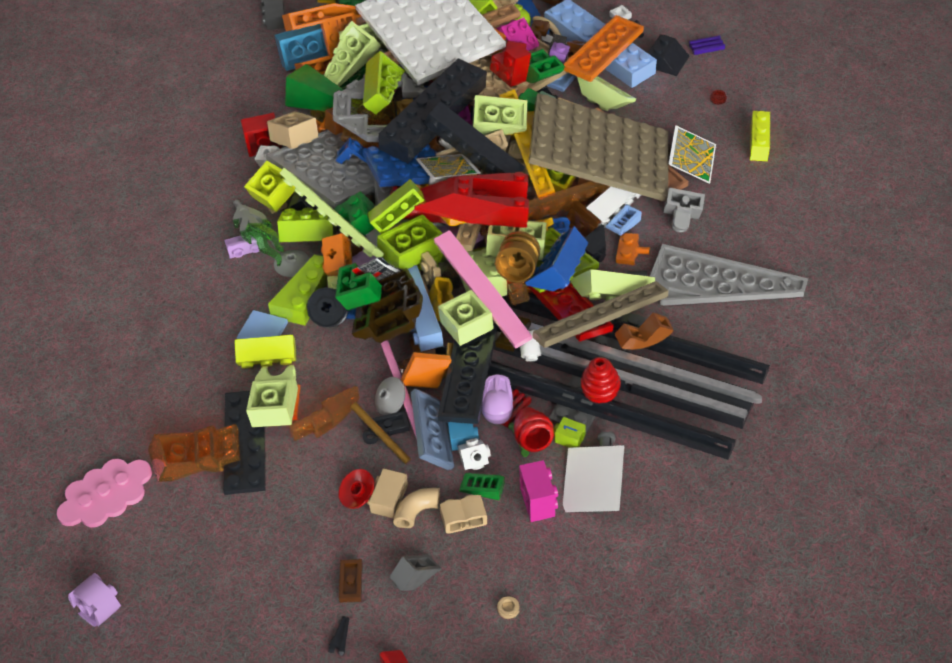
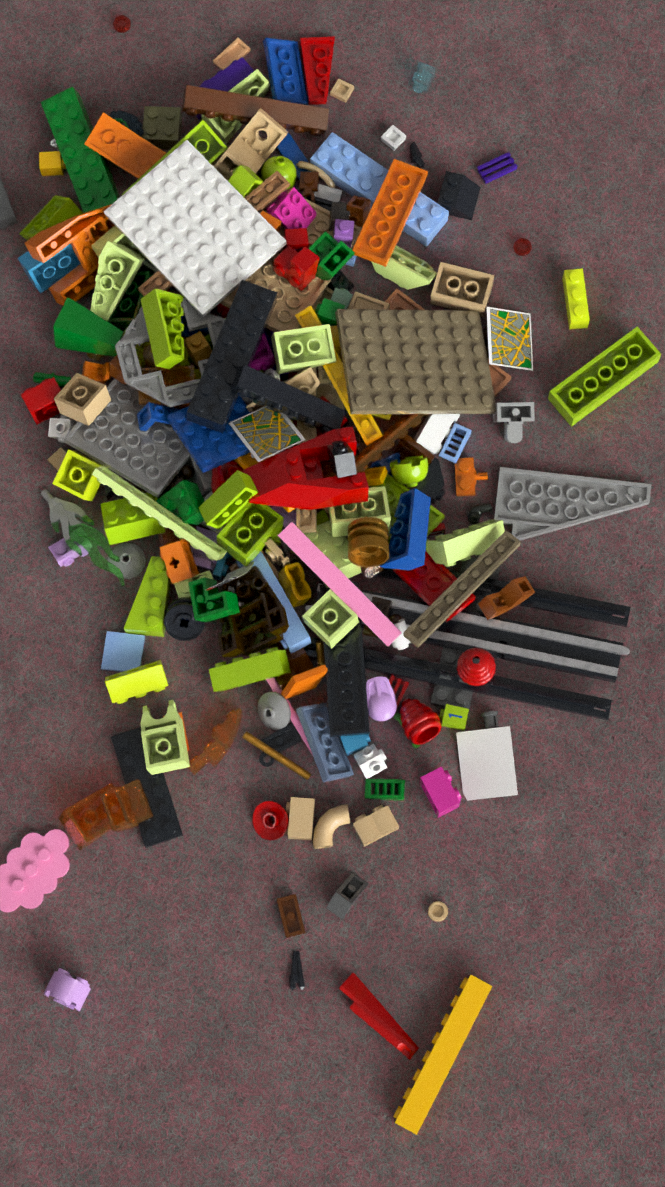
camera: 10 degrees left, 25 degrees up
(375, 354) = (249, 670): none -> lime brick
(510, 184) = (341, 459): none -> brick
(569, 219) = (410, 470): none -> lime cylinder
(657, 111) = (461, 289): none -> tan brick
(776, 191) = (604, 376): none -> lime brick

